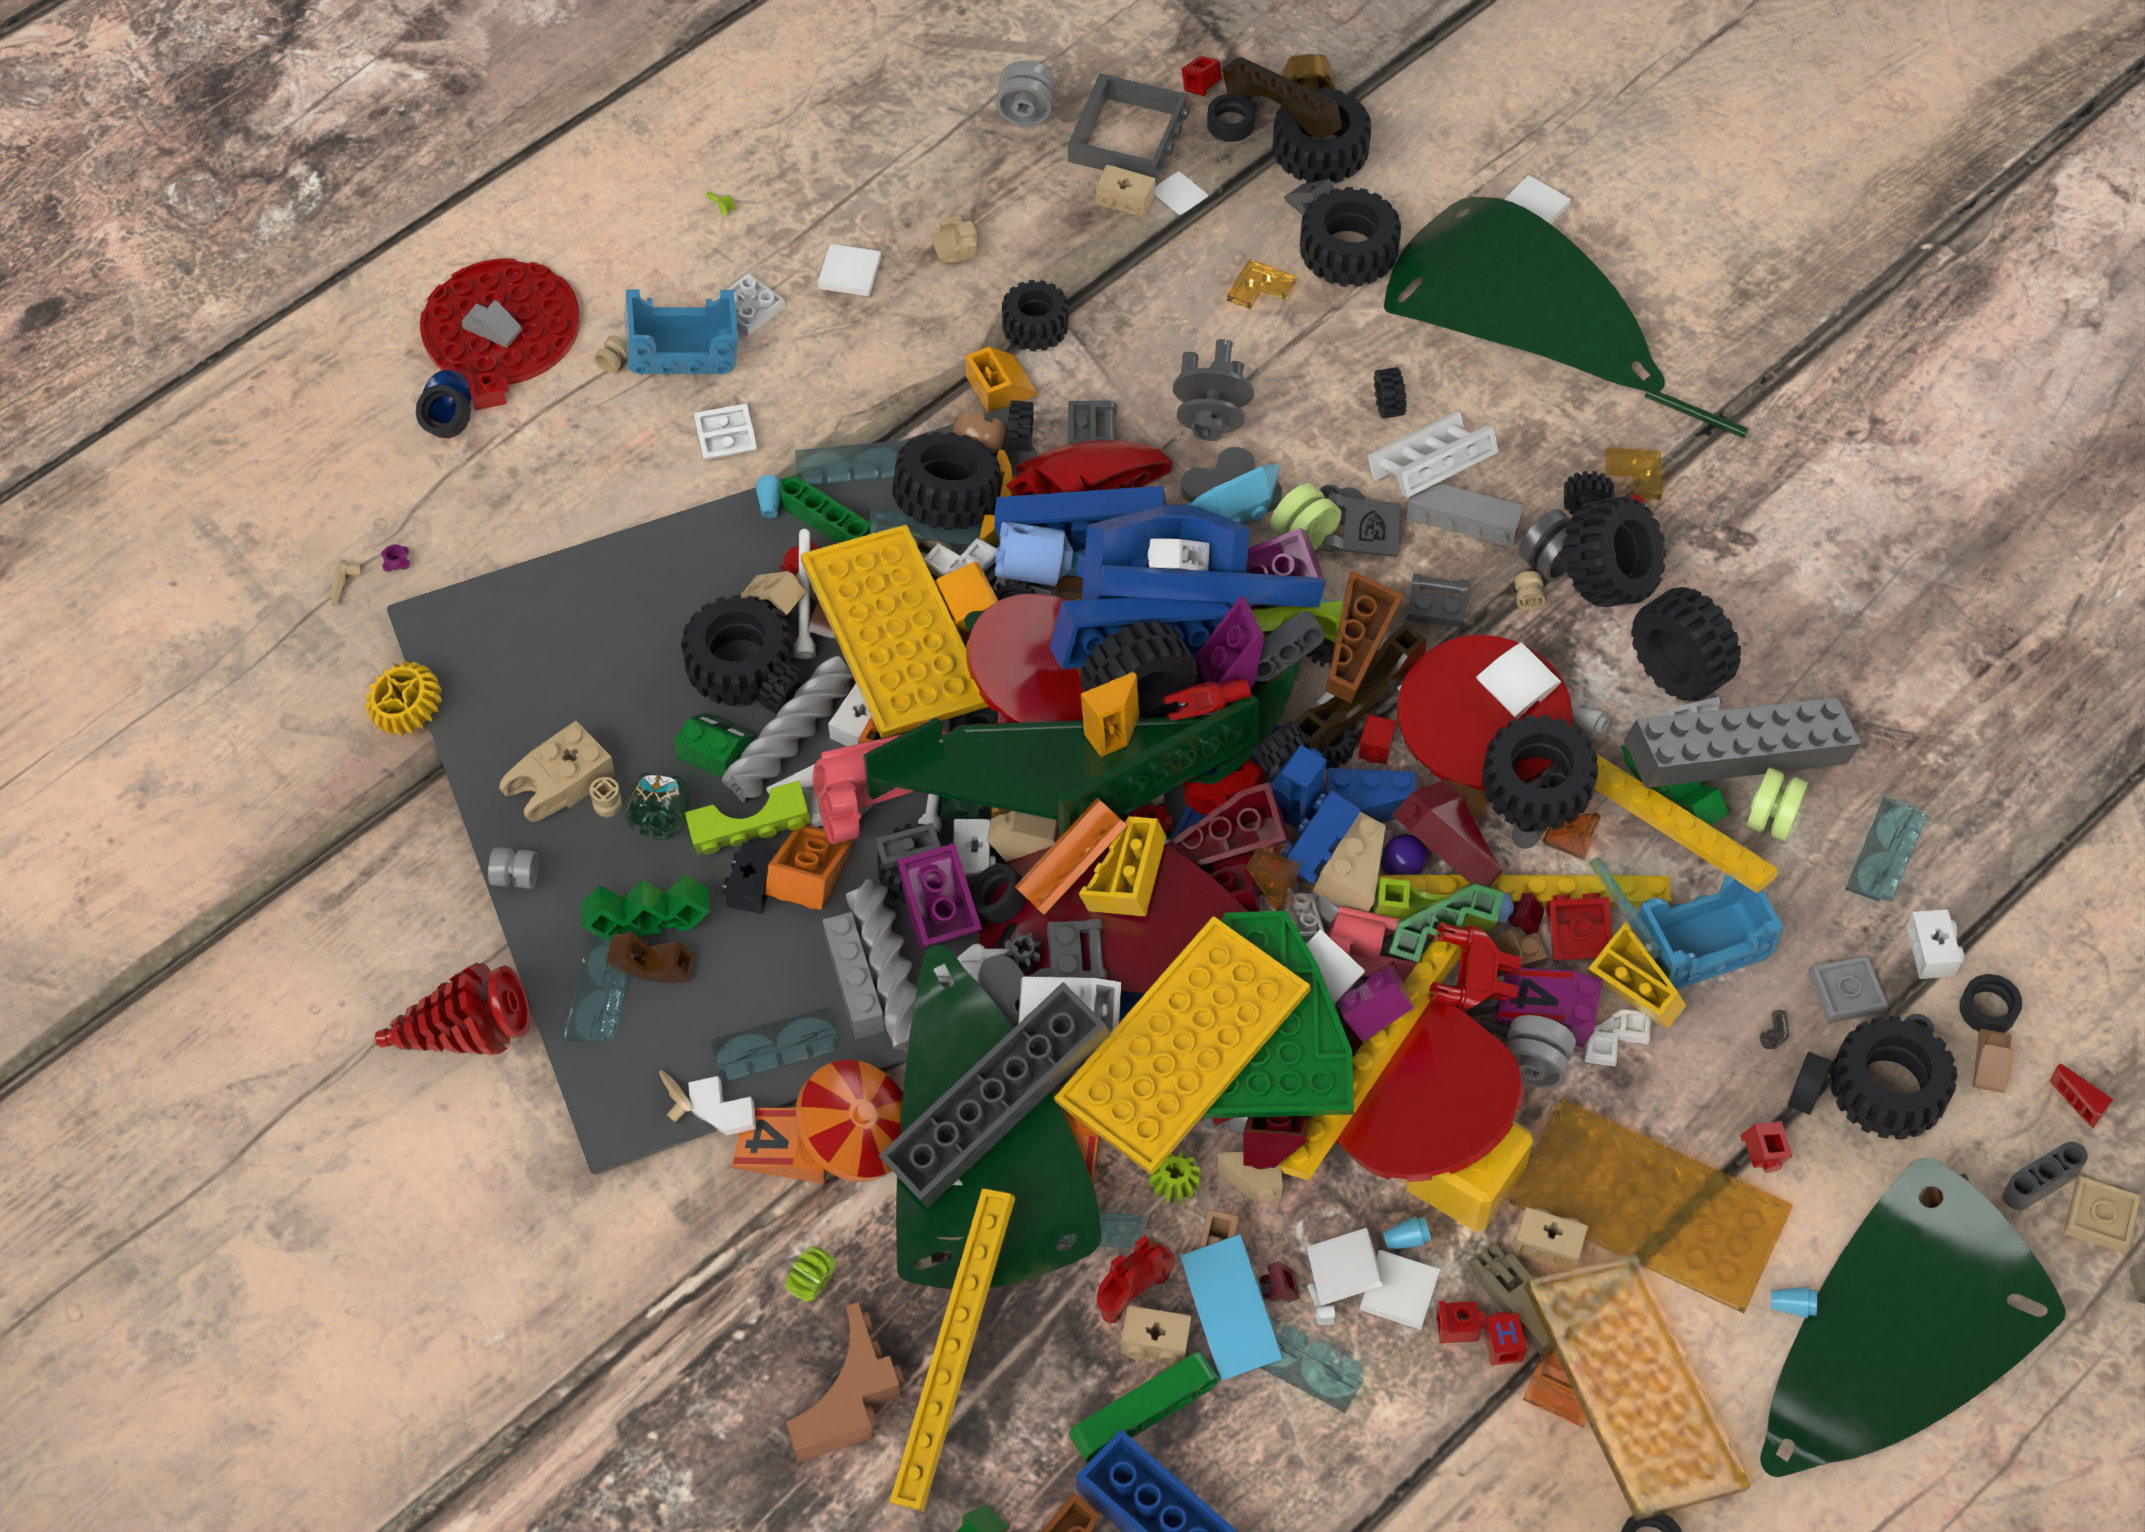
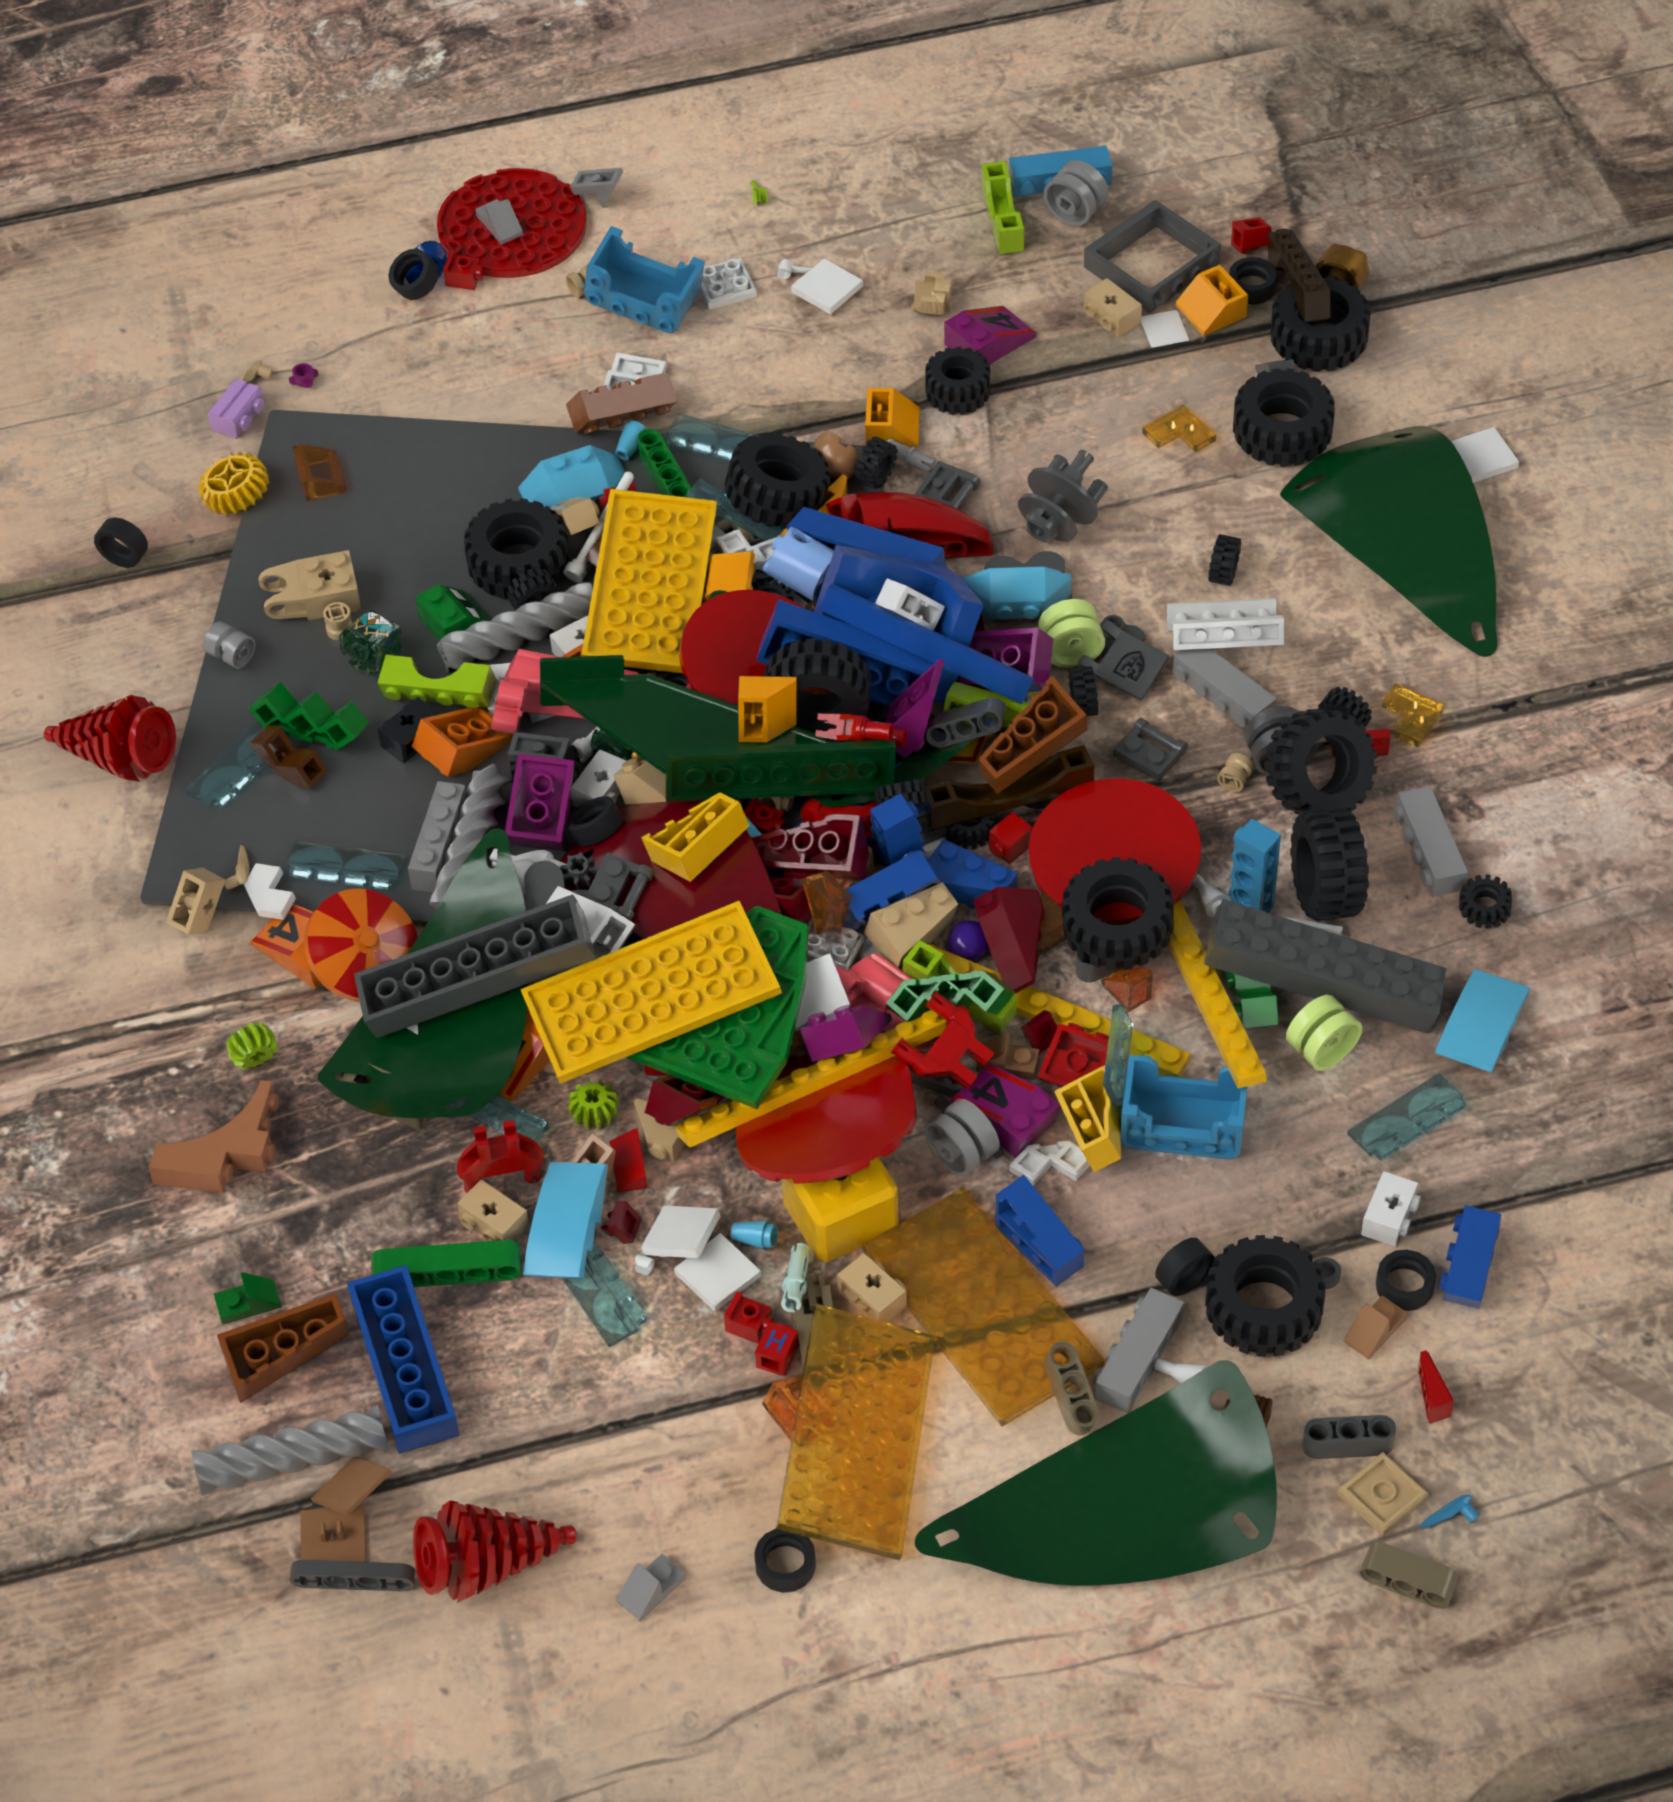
camera: 30 degrees right, 5 degrees down
(328, 796) = (126, 533): none -> black tyre
(351, 619) = (236, 408): none -> lavender brick
(482, 669) = (316, 487): none -> clear orange tile
(566, 248) = (597, 181): none -> light grey slope
(658, 1150) = (195, 901): none -> tan brick
(738, 463) = (621, 403): none -> dark orange wedge
(745, 550) = (571, 475): none -> medium azure wedge
(798, 266) = (786, 268): none -> white hand
(952, 1350) = (317, 1146): yellow plate -> none
(980, 81) = (1033, 172): none -> dark azure brick
(982, 151) = (1005, 222): none -> lime arch
(1027, 257) = (988, 331): none -> magenta slope
(1044, 405) = (913, 457): none -> light grey axle
(1070, 856) = (658, 806): orange fence -> none
(1212, 150) = (1213, 301): none -> light orange slope
(1252, 1224) = (628, 1162): none -> red slope
(1348, 559) = (1083, 689): none -> black tyre
(1486, 1269) = (794, 1284): none -> light aqua pin
(1506, 908) = (1019, 1014): medium blue tile -> none
(1518, 680) = (1157, 833): white slope -> none
(1628, 678) = (1255, 866): none -> dark azure brick
(1661, 1111) = (1037, 1231): none -> blue wedge
(1696, 412) = (1504, 687): dark green bar -> none
(1737, 583) = (1430, 841): none -> light grey brick
(1767, 1145) = (1120, 1295): red brick -> none
(1776, 1244) = (1073, 1373): none -> dark tan beam
(1778, 1034) = (1195, 1221): clear smoke arm -> none
(1795, 1301) = (1049, 1434): medium azure cone -> none
(1817, 1182) = (1139, 1348): none -> light grey brick
(1818, 606) = (1490, 889): none -> black tyre
(1848, 989) = (1287, 1213): light grey tile -> none
(1871, 1184) = (1178, 1371): none -> white cone
(1891, 731) = (1482, 1020): none -> medium azure slope
(2034, 956) = (1470, 1256): none -> blue wedge

